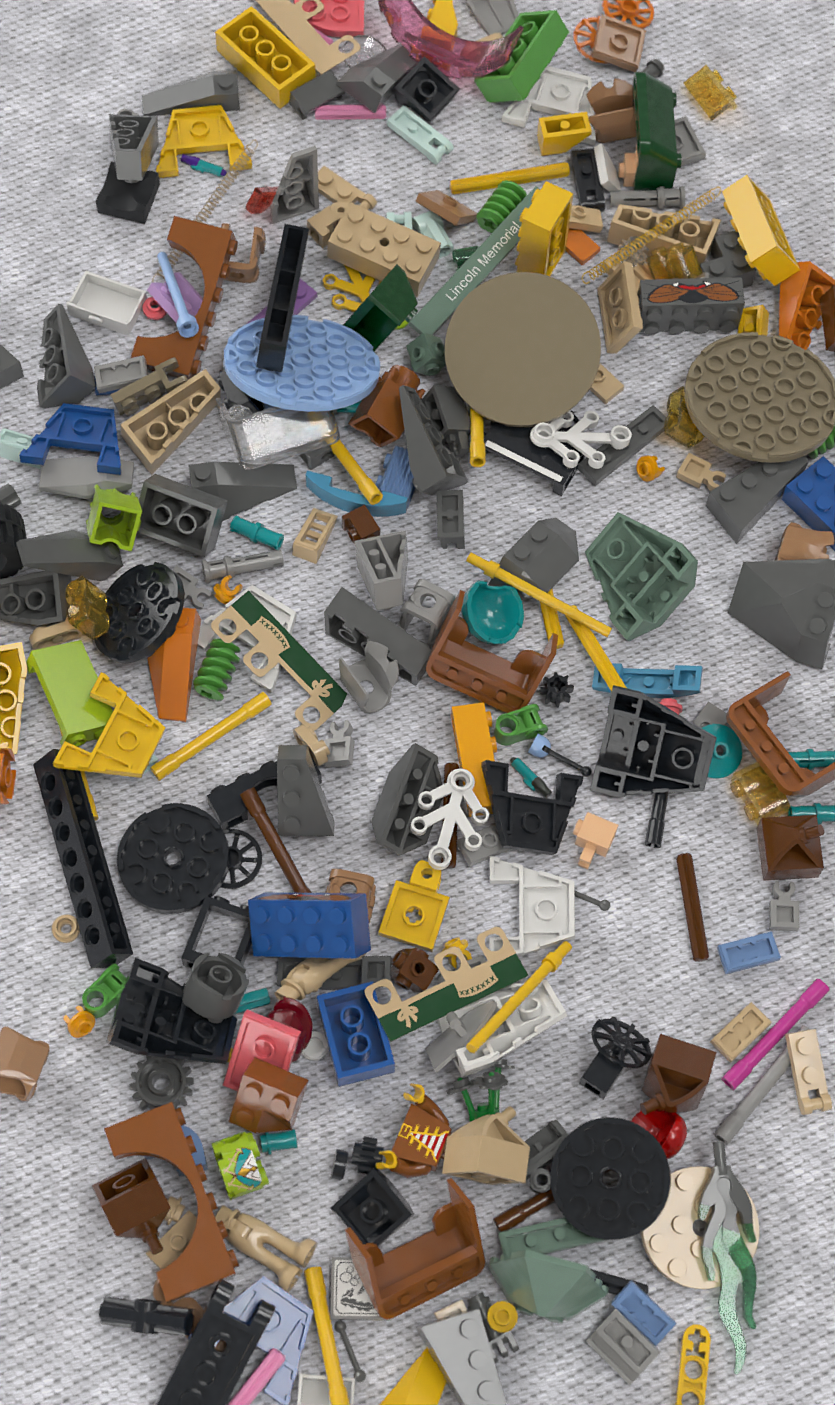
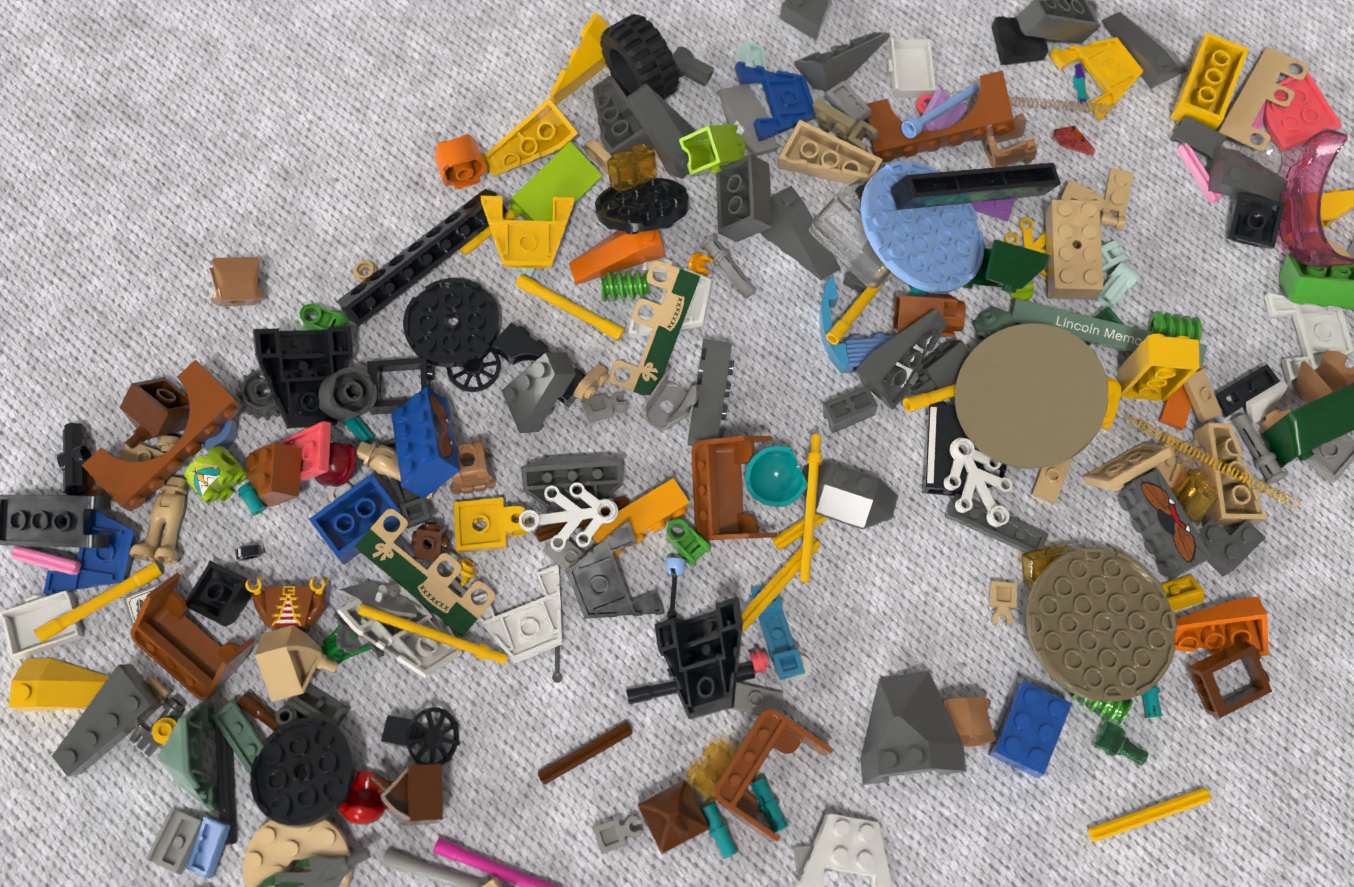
camera: 65 degrees right, 5 degrees up
(80, 1023) = (290, 314): light orange plate -> none
(191, 592) = (688, 230): light grey plate -> none
(256, 532) = (763, 265): teal pin -> none
(258, 812) = (511, 366): reddish brown piece -> none
(298, 187) = (1092, 155): light grey wedge -> none
(312, 550) = (774, 317): tan slope -> none
(359, 1375) = (88, 639): dark grey hinge -> none
(360, 524) = (806, 343): reddish brown brick -> none
(366, 1155) = (262, 567): black gear -> none
(384, 568) = (773, 373): light grey wedge -> none
(419, 134) = (1209, 235): light aqua plate -> none
(433, 615) = (753, 410): light grey piece -> none
(446, 207) = (1146, 283): medium nougat plate -> none
(517, 176) = (1211, 326): yellow axle -> none
(530, 777) = (644, 571): piece -> none
(550, 692) = (731, 566): black gear -> none
(562, 132) = (1279, 347): yellow slope -> none
(594, 836) = (611, 644): light nougat brick -> none
(640, 574) = (870, 588): sand green wedge -> none
(648, 468) = (983, 553): light orange plate -> none
(731, 758) = (744, 706): teal dish -> none
(740, 1032) = (486, 838): tan plate -> none
(748, 952) = (562, 818): medium blue plate -> none
(751, 494) = (1003, 654): dark grey wedge -> none
(759, 231) = (1275, 557): yellow brick -> none

